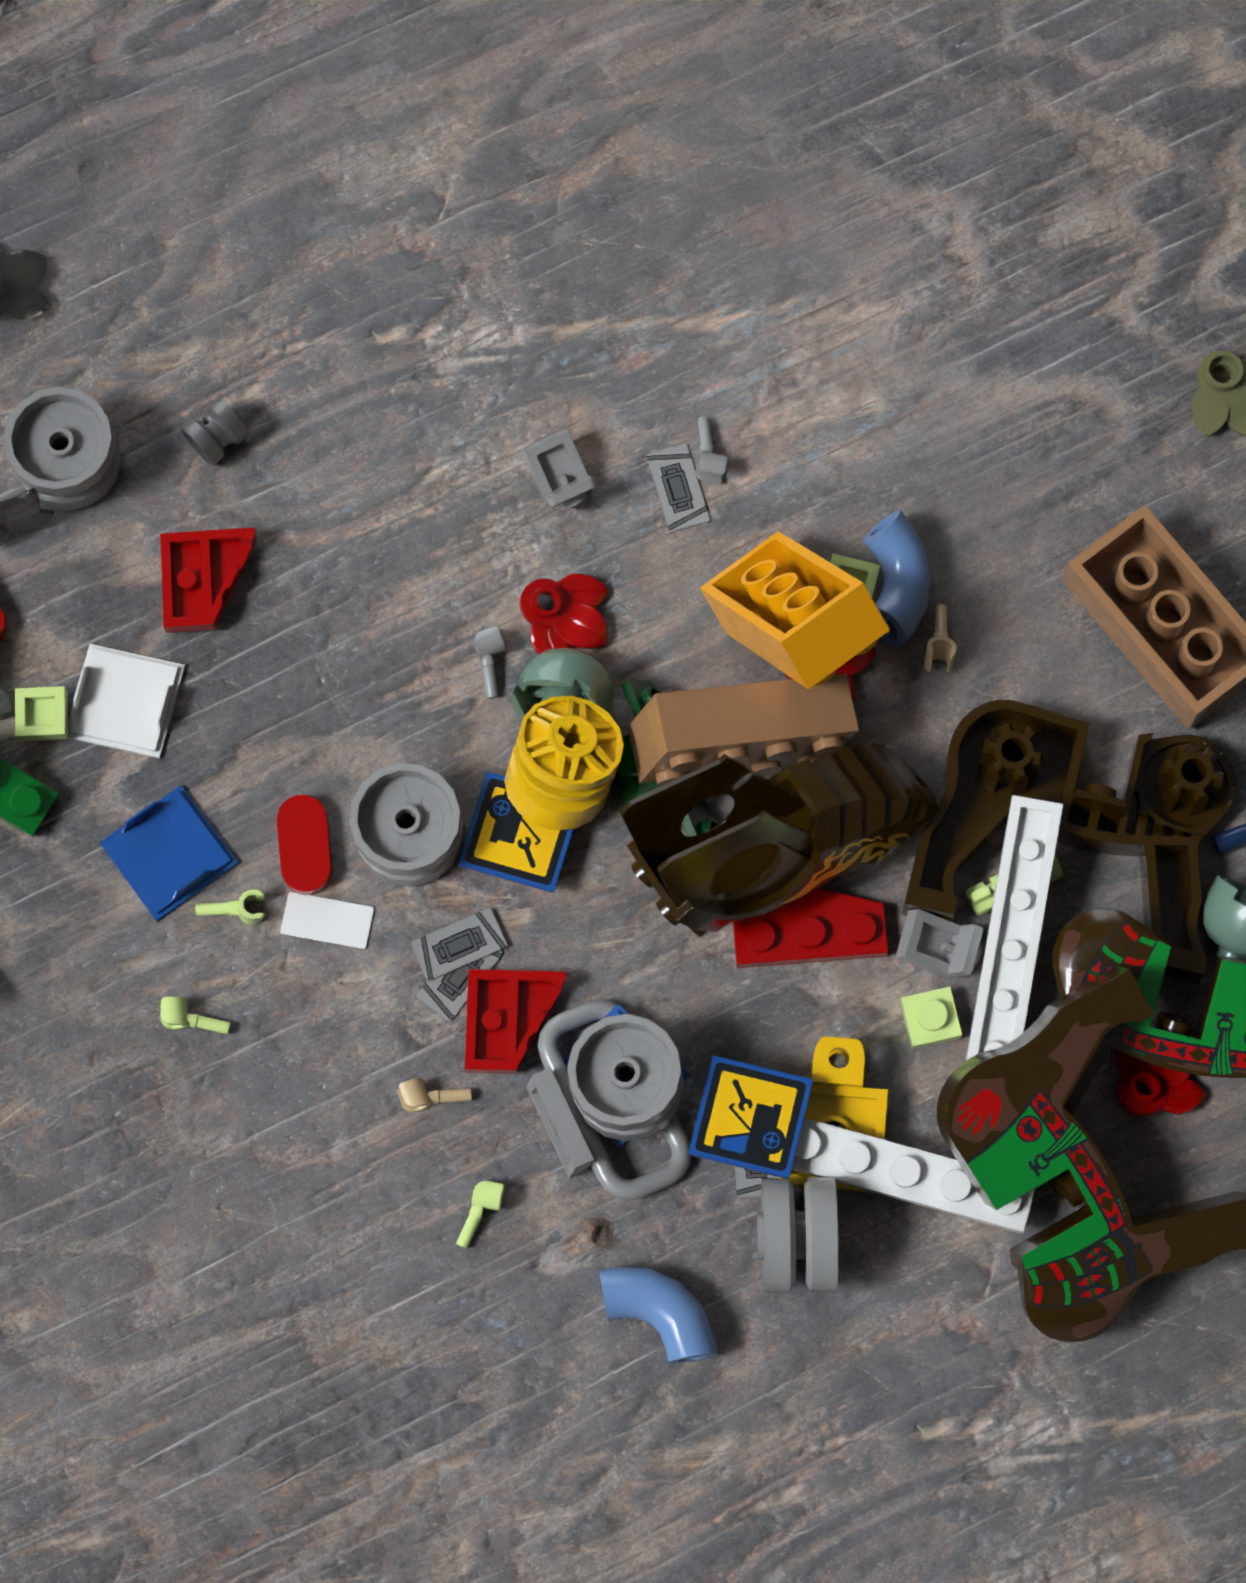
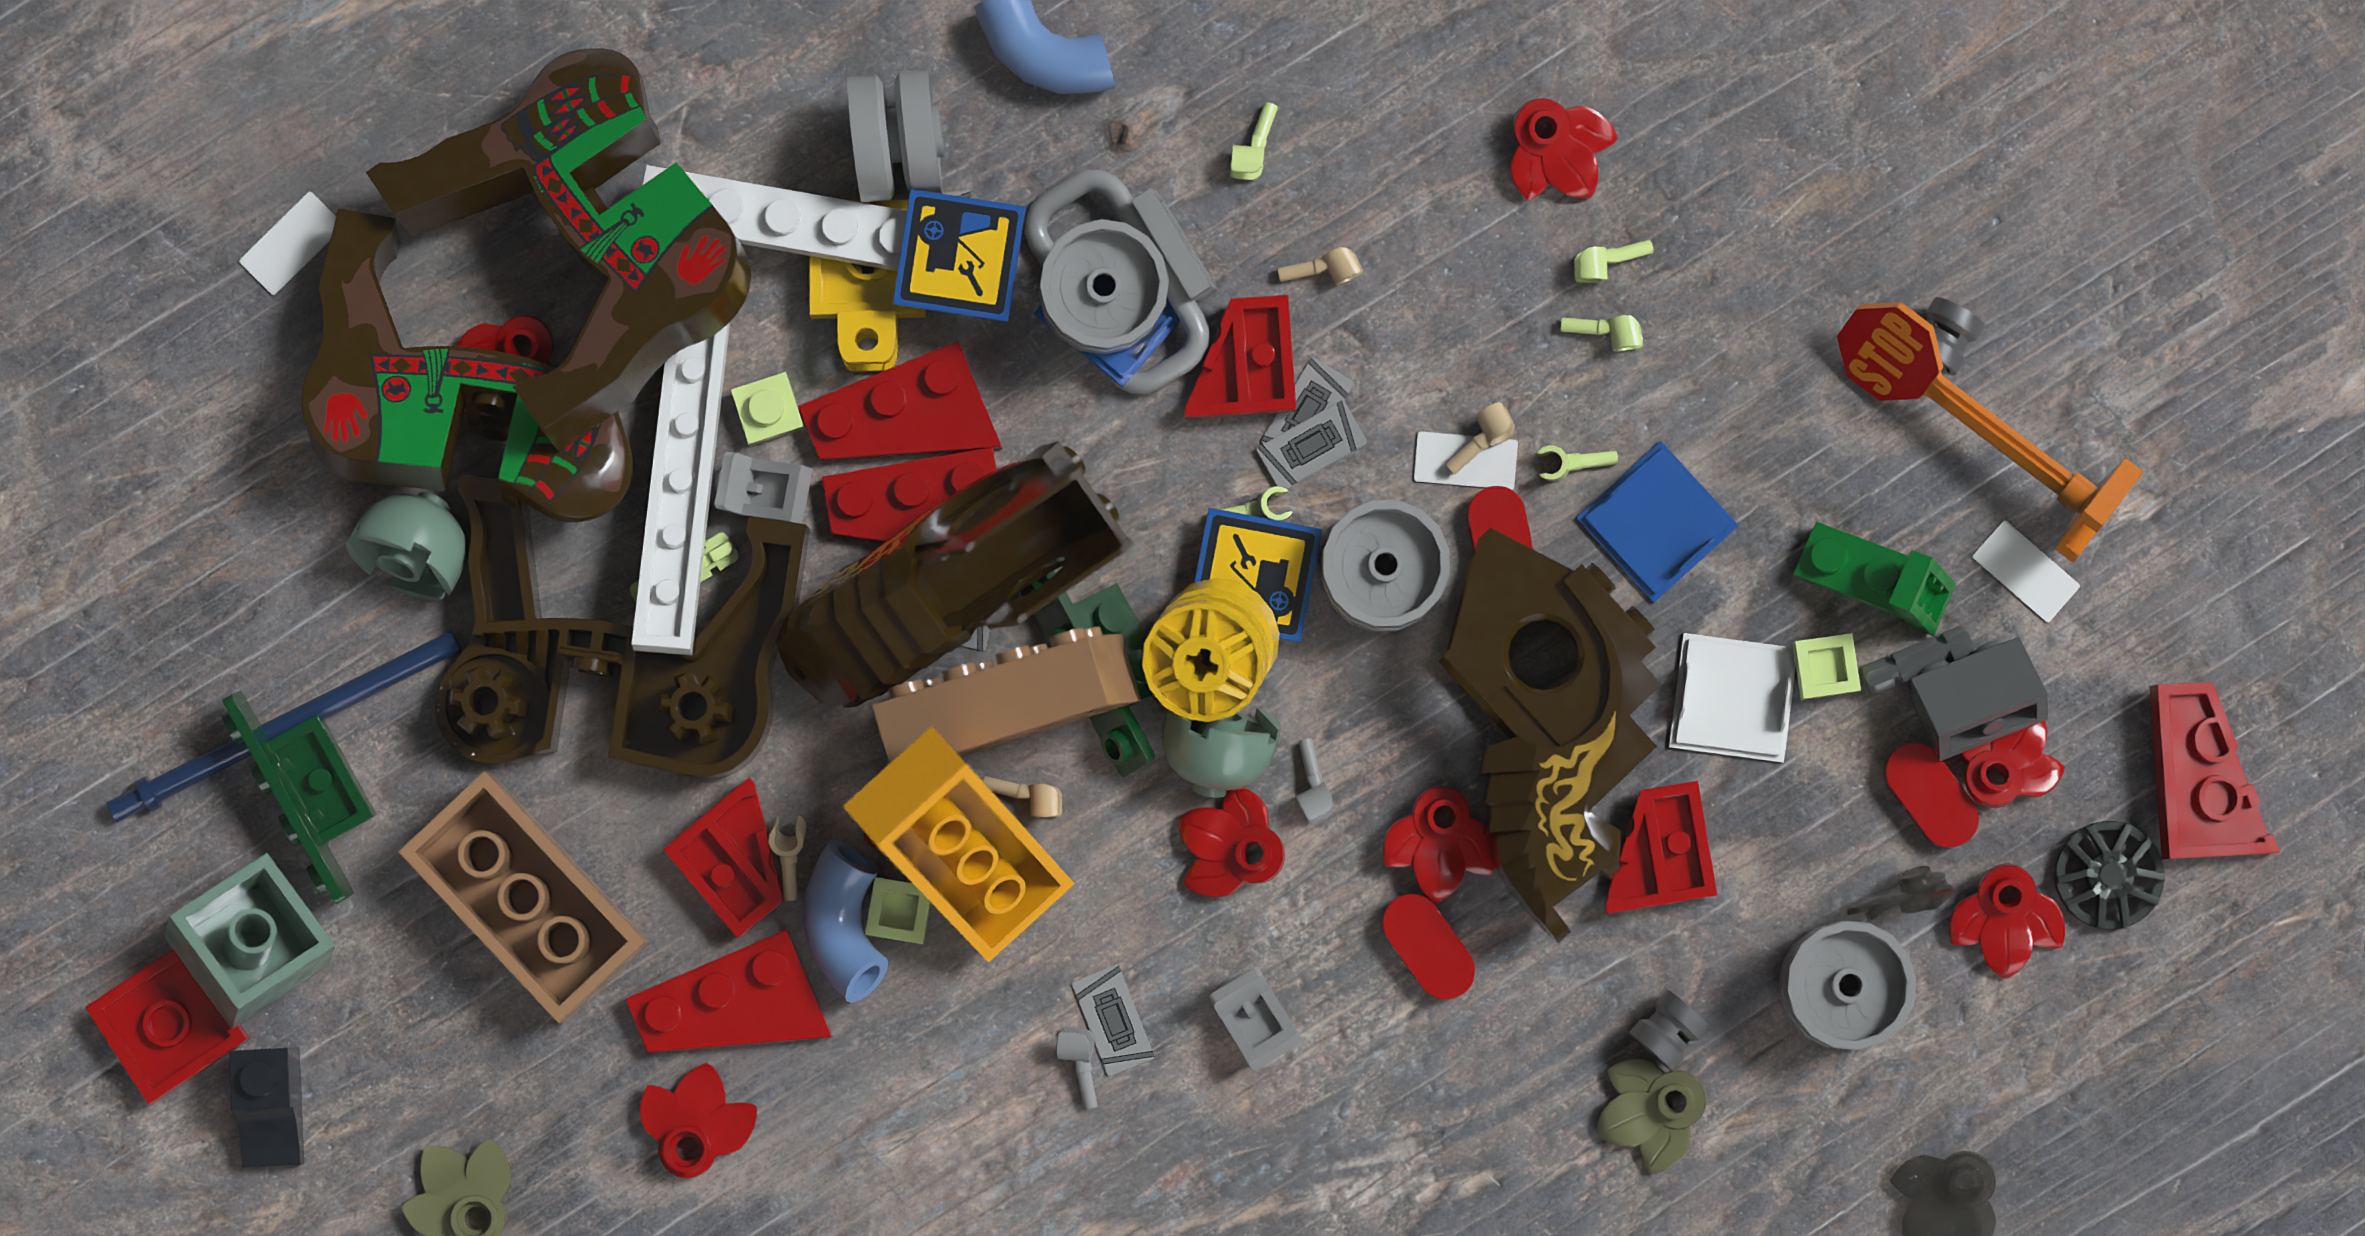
camera: 170 degrees right, 10 degrees up
(195, 1077) = (1592, 263): none -> yellowish green hand
(207, 1174) = (1562, 157): none -> red plate
(245, 373) = (1645, 1118): none -> olive plate
(274, 659) = (1563, 741): none -> dark brown animal
(297, 942) = (1496, 429): none -> tan hand
(385, 593) = (1439, 852): none -> red plate
(407, 519) = (1428, 946): none -> red tile
(510, 893) = (1259, 507): none -> yellowish green hand
(719, 668) = (1044, 798): none -> tan hand
(798, 1005) = (907, 409): none -> red wing
(989, 638) = (731, 860): none -> red wing
(996, 527) = (734, 1000): none -> red wing
(1030, 441) = (696, 1112): none -> red plate

